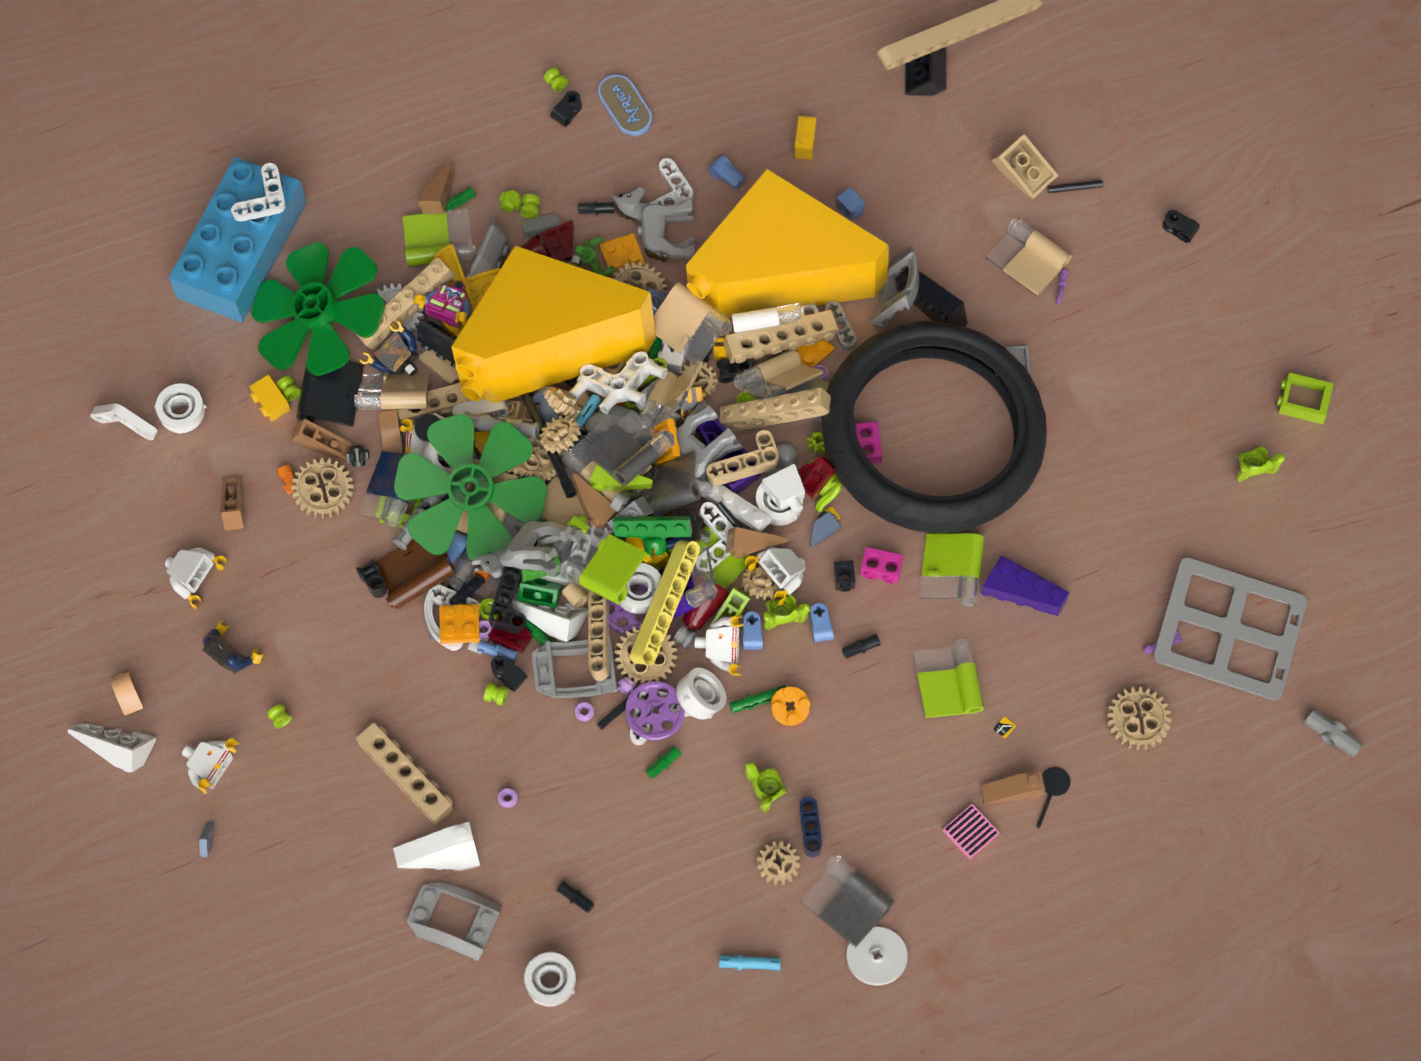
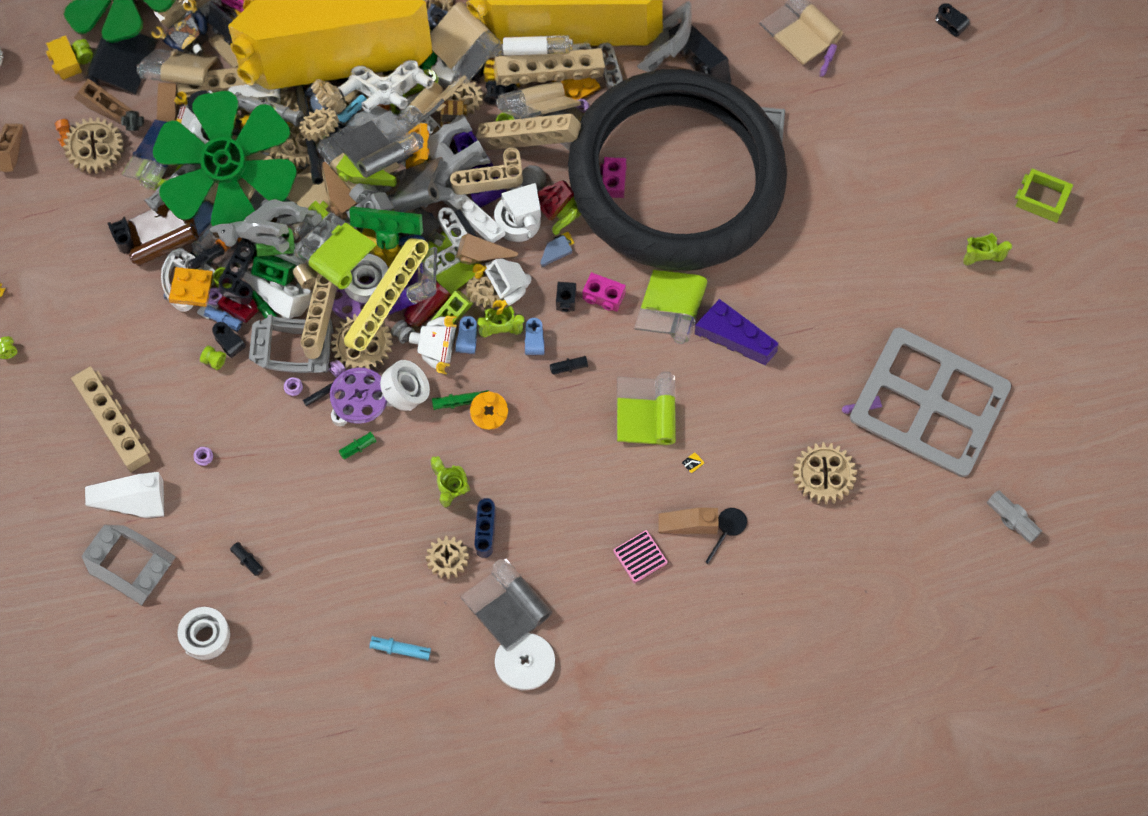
camera: 10 degrees right, 0 degrees up
(816, 448) = (562, 170): lime gear -> none

